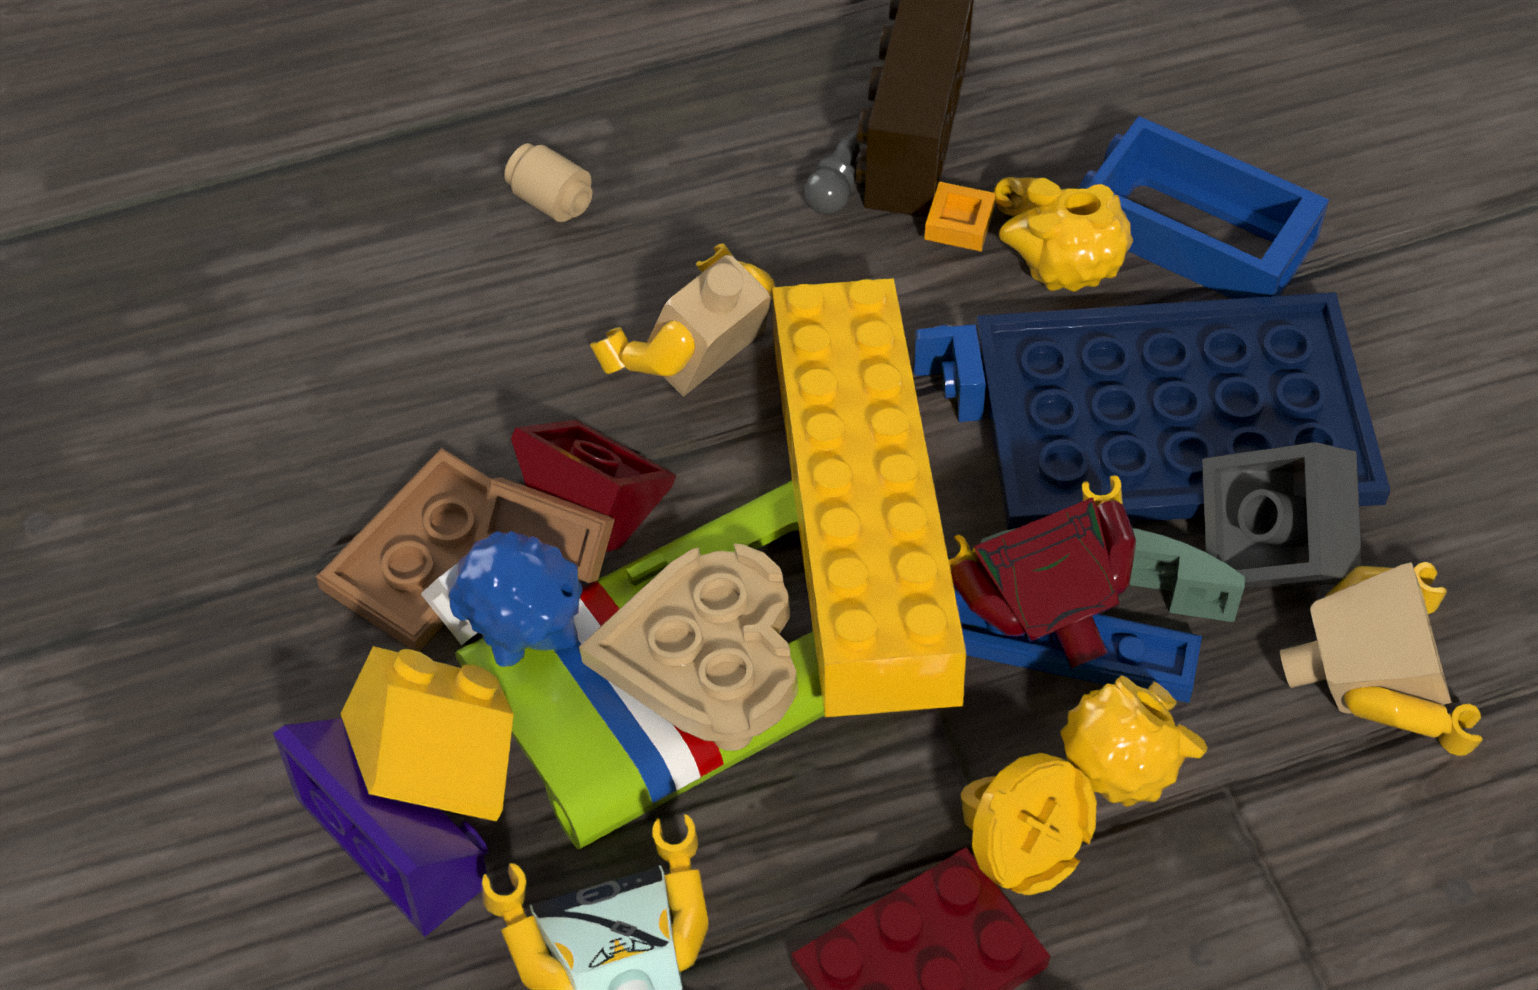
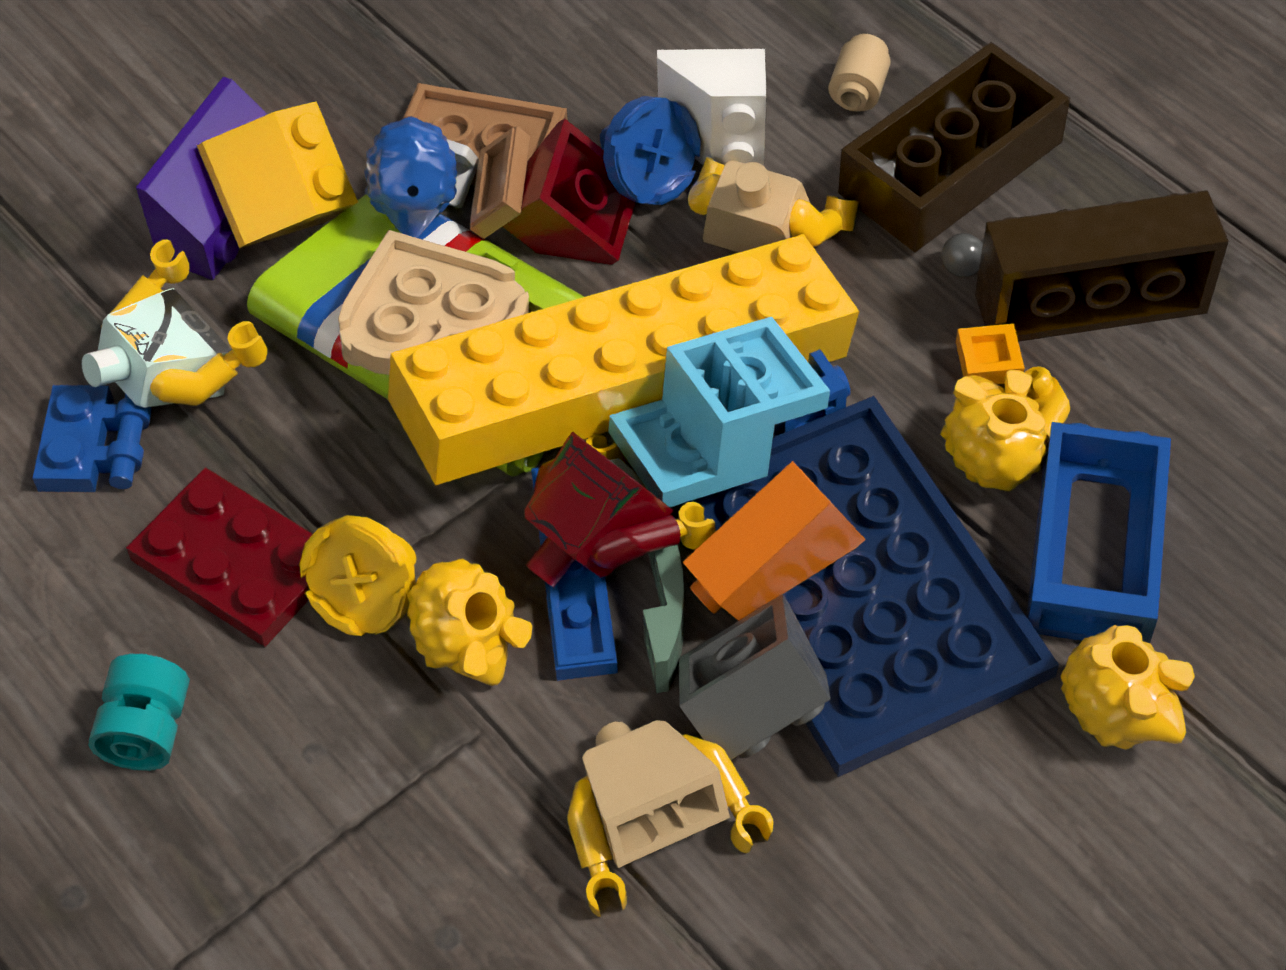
camera: 70 degrees right, 0 degrees up
(551, 302) = (724, 97): none -> white slope
(564, 386) = (651, 150): none -> blue tile
(703, 141) = (953, 146): none -> dark brown brick
(989, 423) = (718, 411): none -> medium azure bracket
(1157, 440) = (770, 545): none -> orange slope
(1387, 253) = (1125, 689): none -> yellow animal

